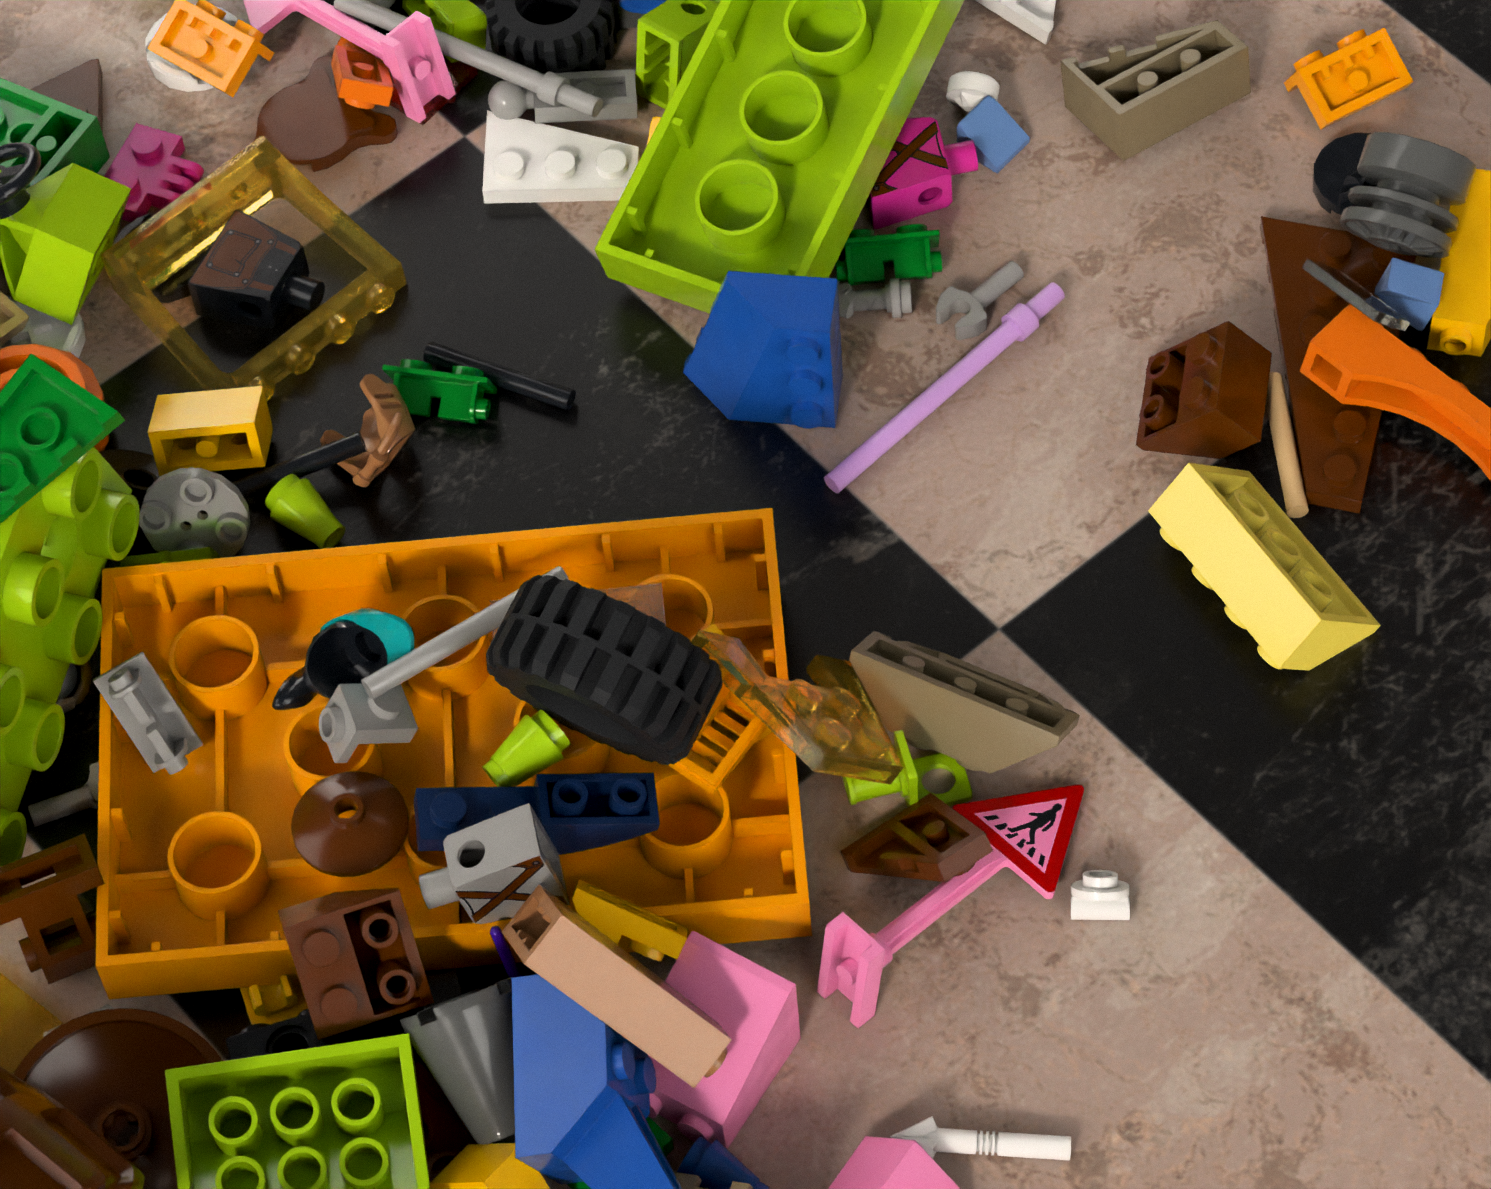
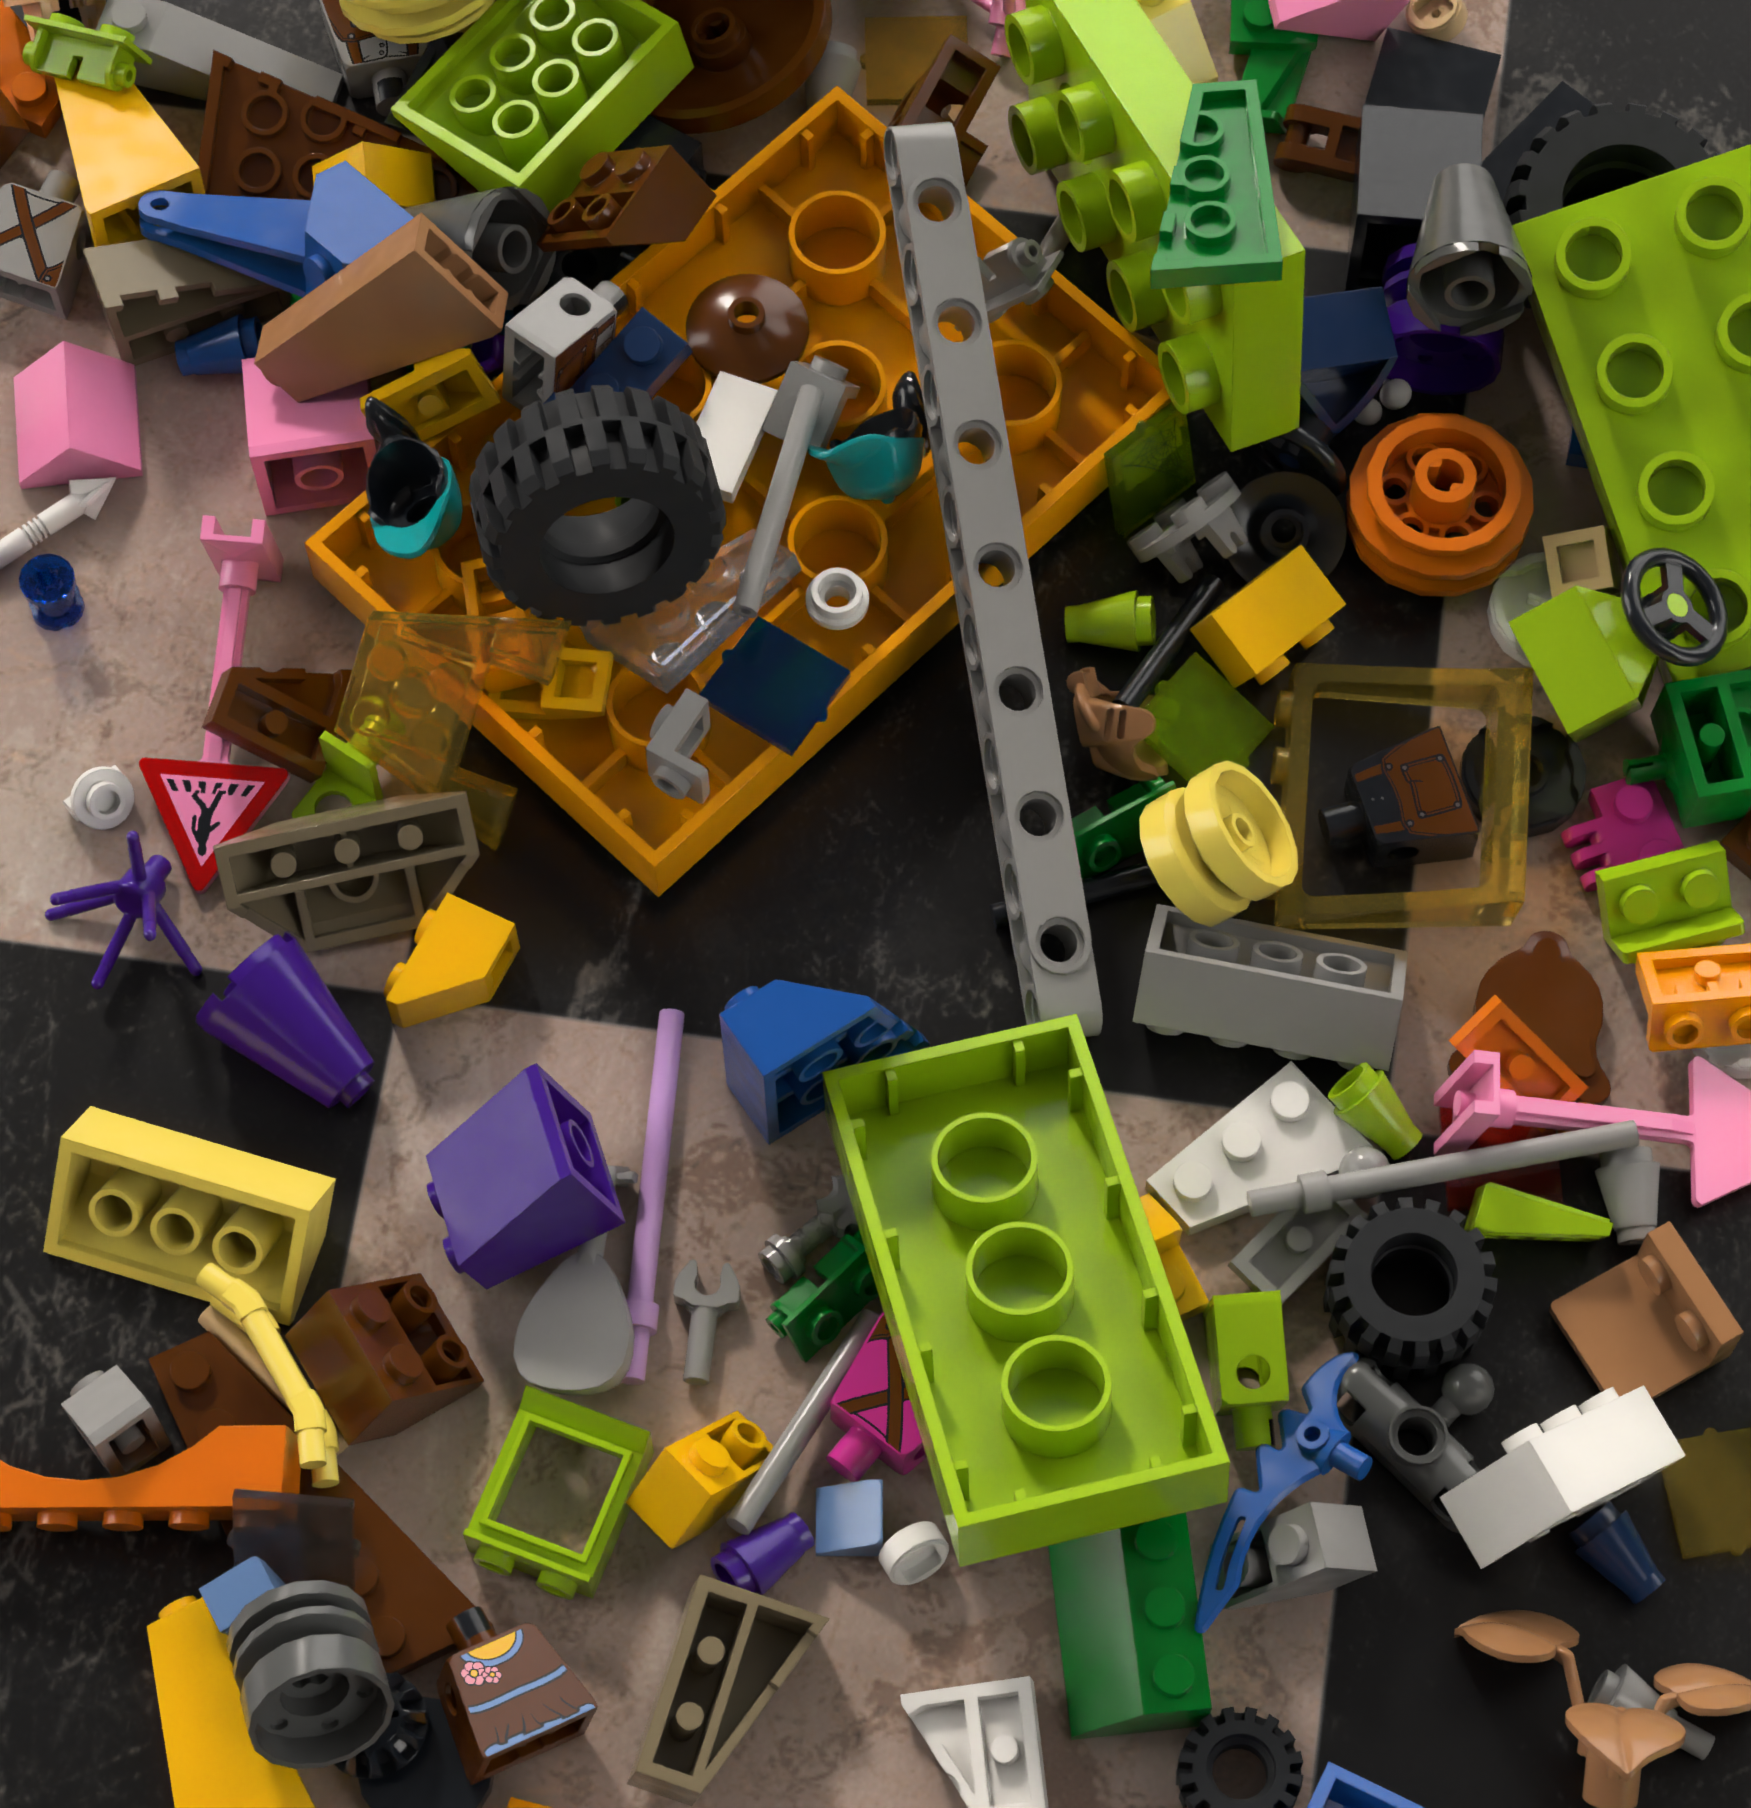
camera: 135 degrees right, 10 degrees up
(176, 109) = (1668, 902): none -> lime bracket
(320, 411) = (1203, 720): none -> clear neon green piece
(352, 534) = (995, 622): none -> light grey beam
(400, 297) = (1218, 843): none -> light yellow wheel
(444, 746) = (733, 427): none -> white tile
(448, 233) = (1272, 989): none -> light grey slope
(466, 128) = (1373, 1108): none -> lime cone
(485, 565) = (837, 583): none -> white plate
(586, 548) = (775, 685): none -> piece
(688, 550) = (674, 740): none -> light grey bracket
(713, 831) = (408, 487): none -> black hair
(952, 598) = (455, 964): none -> yellow slope
(975, 191) = (799, 1429): none -> light grey bar
(1014, 1069) = (51, 592): none -> clear blue bush
(1034, 403) = (521, 1181): none -> dark purple slope
(1063, 201) = (700, 1478): none -> yellow slope
(1064, 325) = (578, 1324): none -> light grey piece
(1065, 146) = (764, 1555): none -> dark purple cone
(1099, 634) = (290, 1024): none -> dark purple cone
(1130, 799) = (137, 897): none -> dark purple plant
(1179, 285) = (556, 1567): none -> lime window
(1277, 460) = (312, 1423): none -> light yellow piece
(1289, 159) = (508, 1695): none -> reddish brown torso
(1415, 456) = (116, 1421): none -> light grey slope

